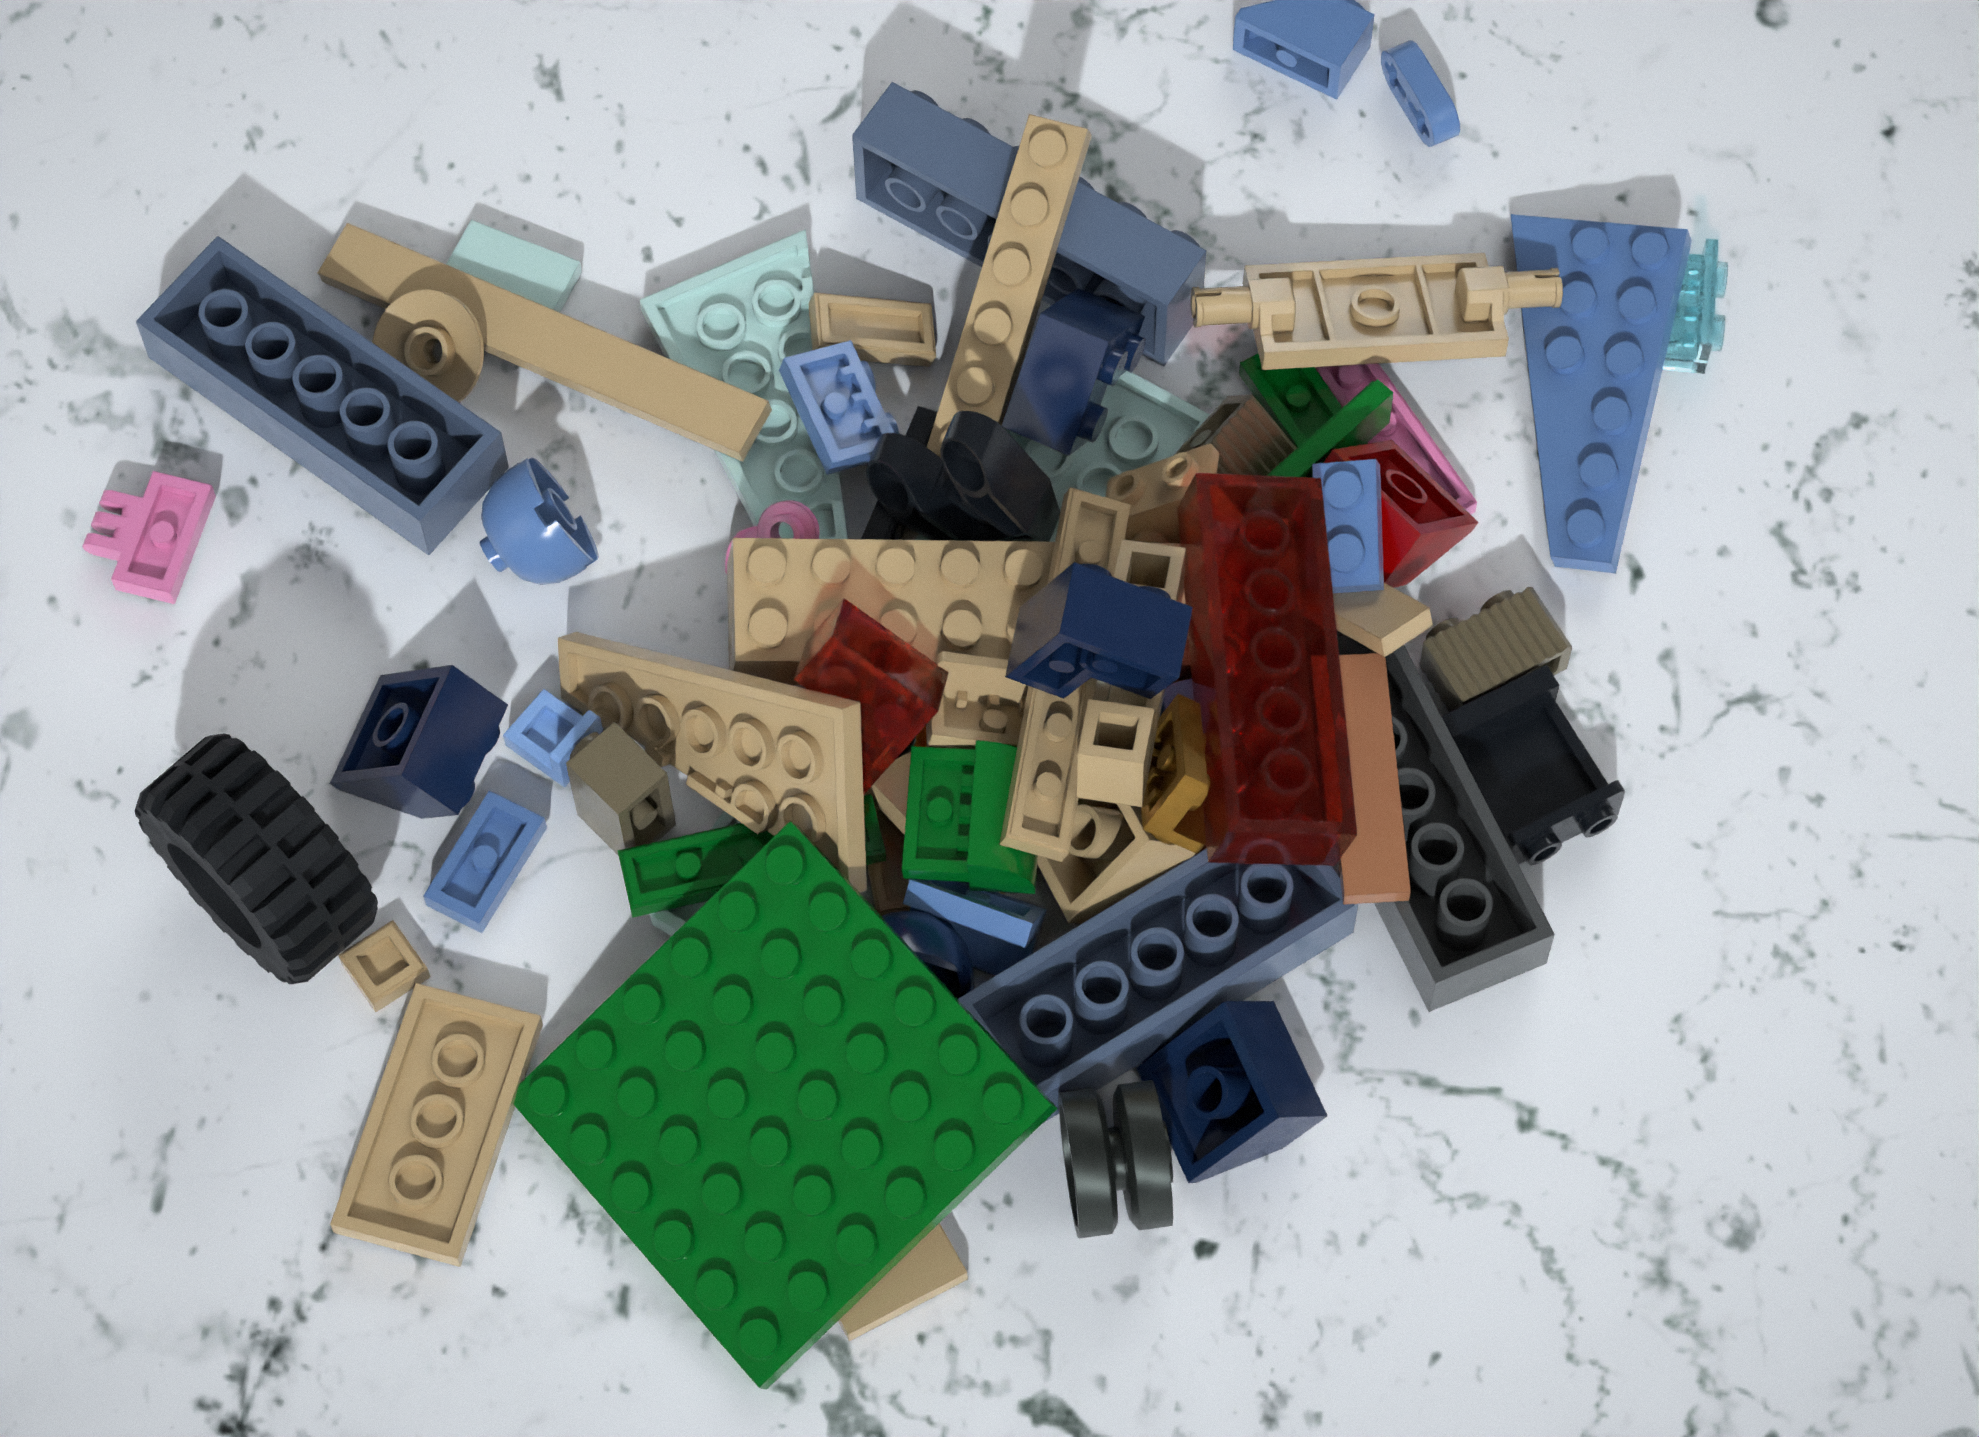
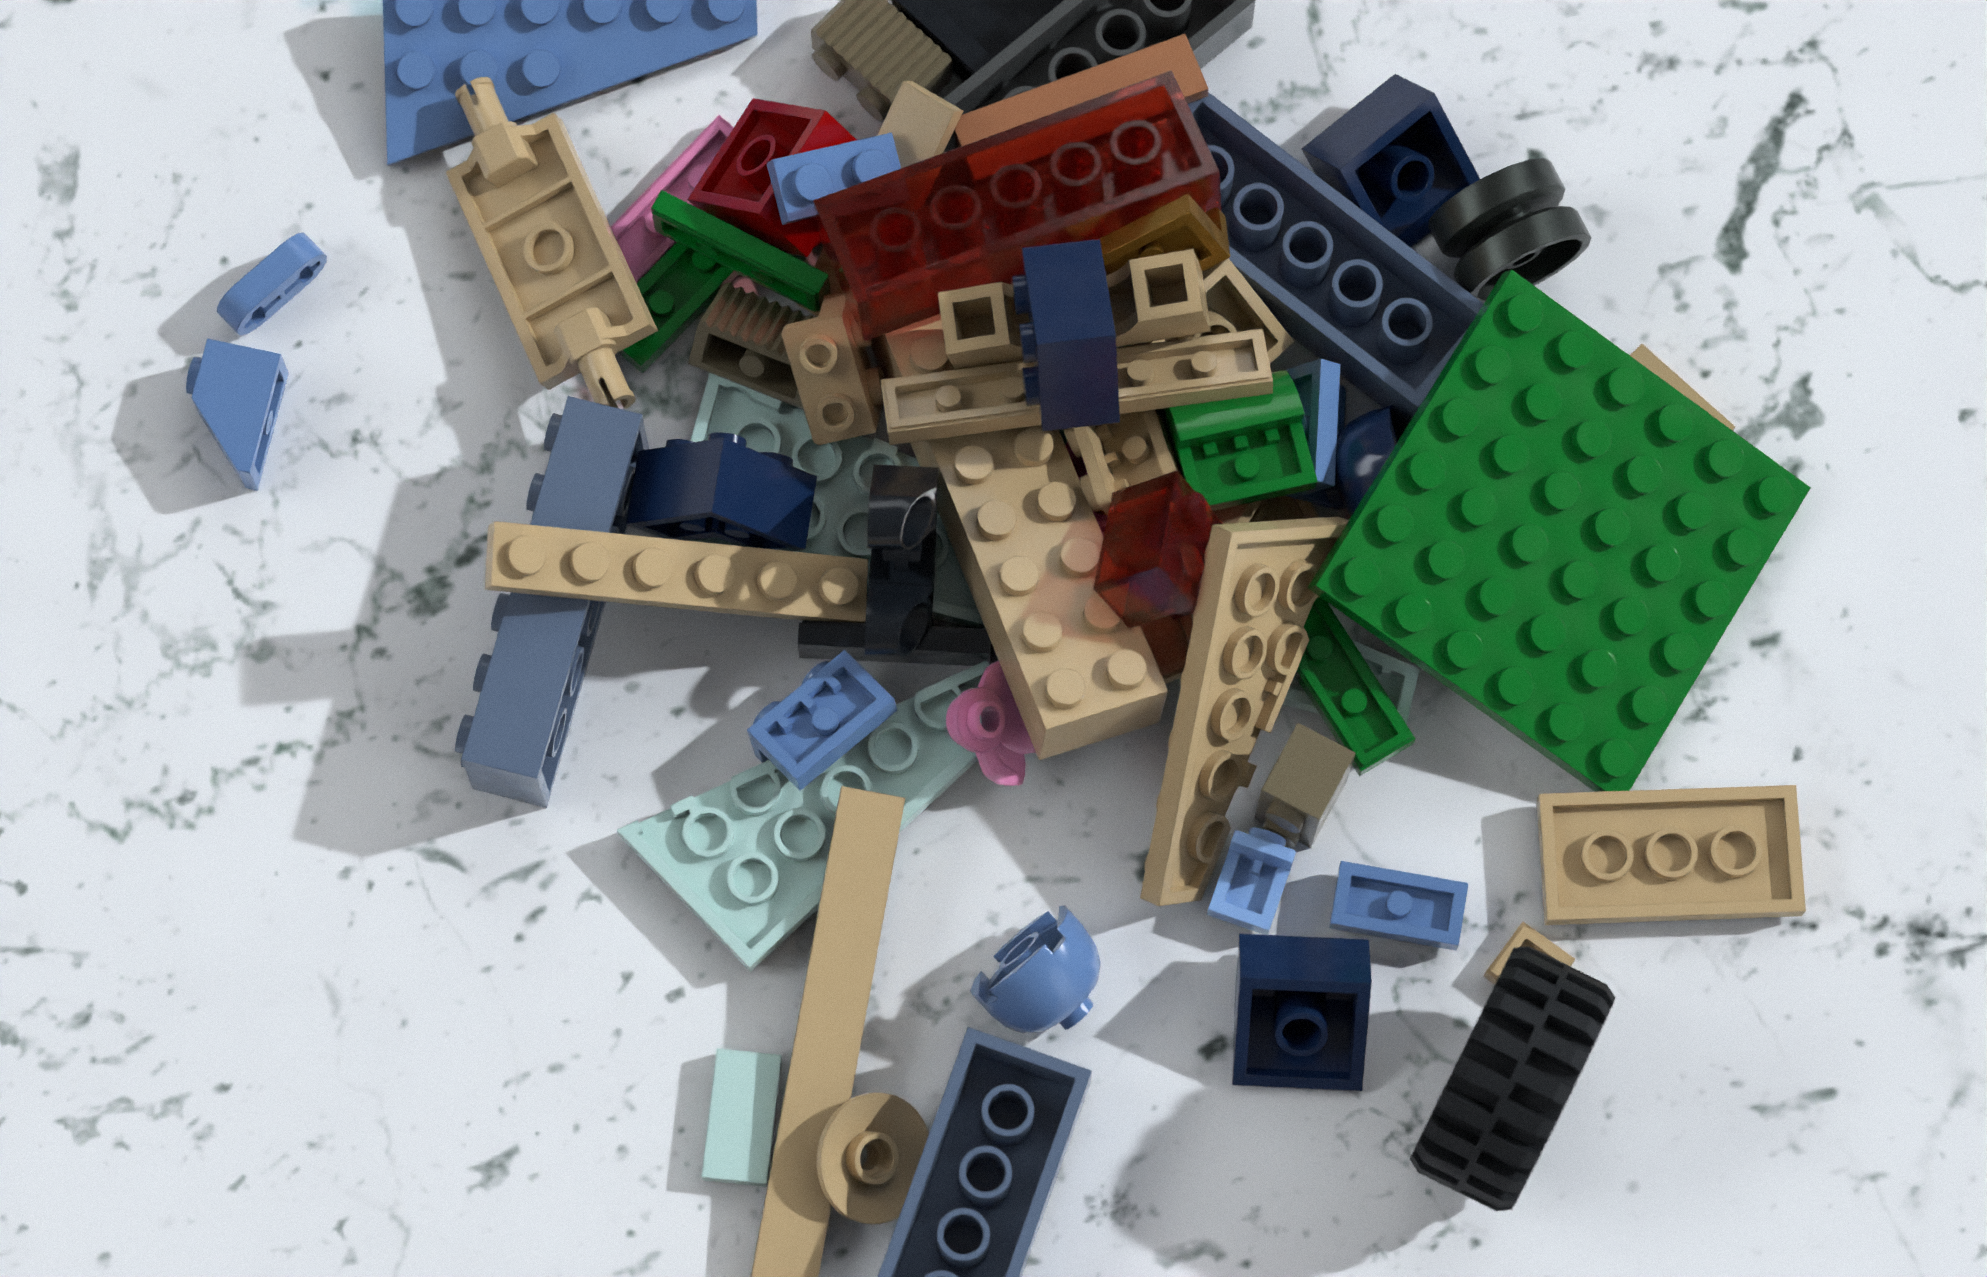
camera: 110 degrees left, 10 degrees up
(877, 327) = (710, 729): tan tile -> none

